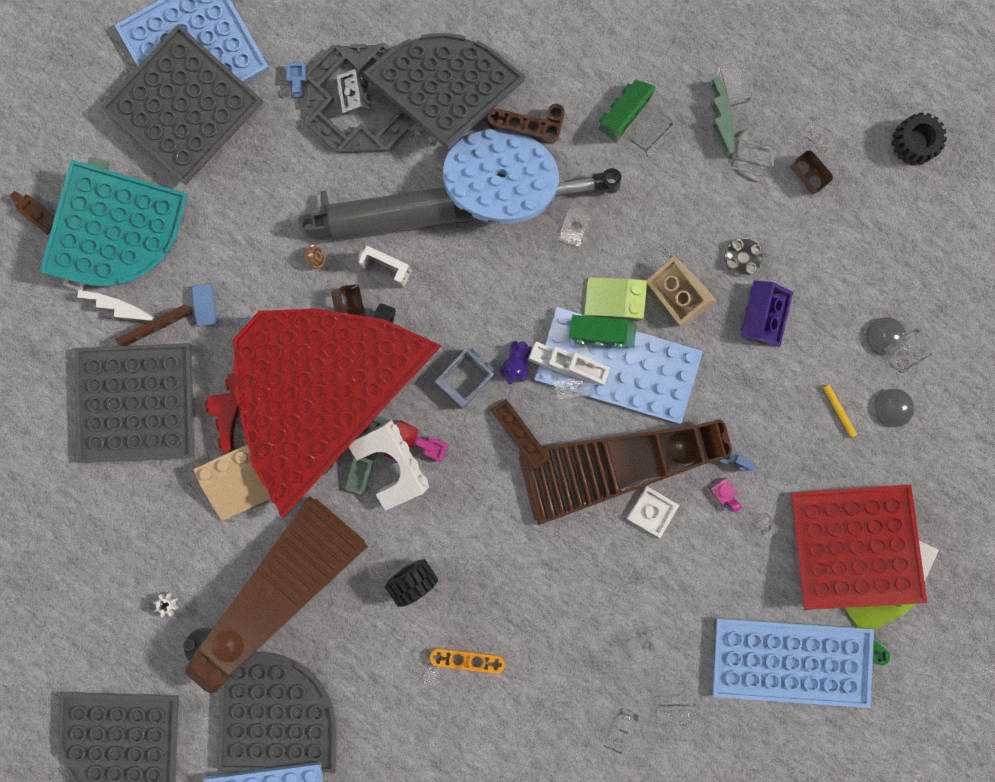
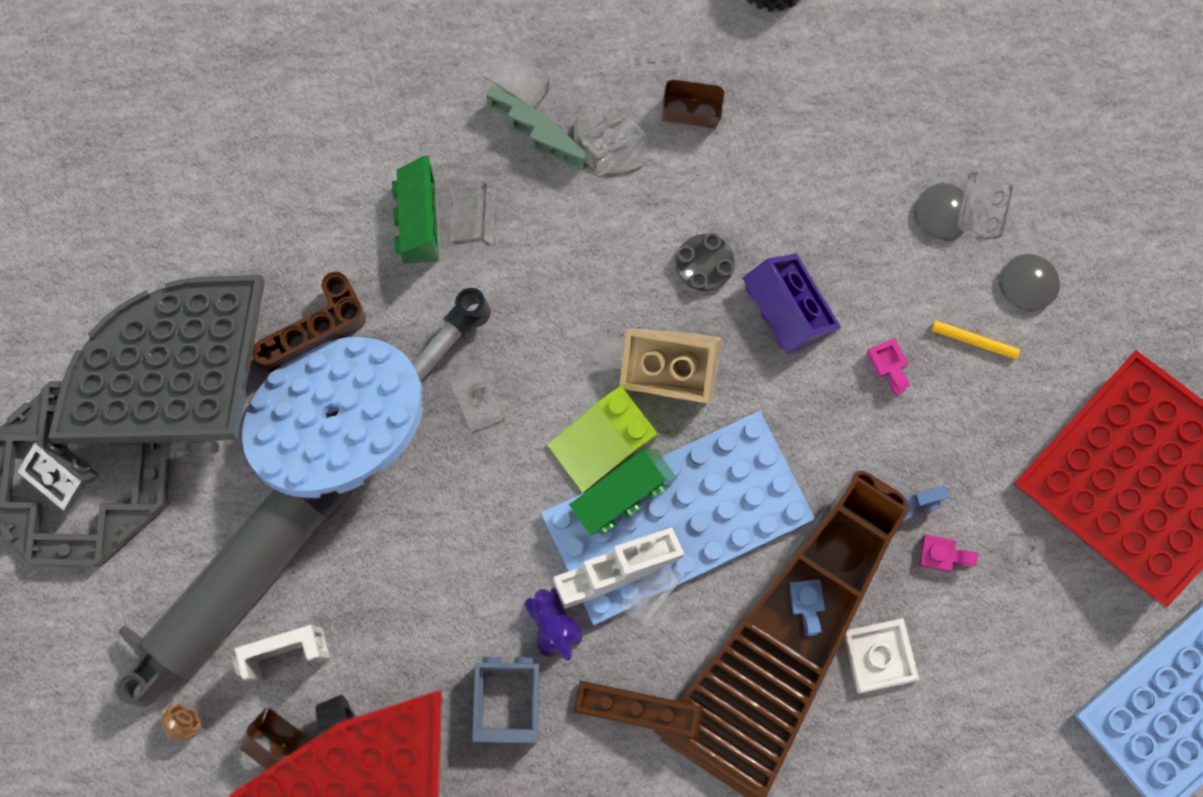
camera: 50 degrees left, 10 degrees down
(642, 457) = (807, 600): none -> medium blue plate
(787, 383) = (889, 361): none -> dark pink plate

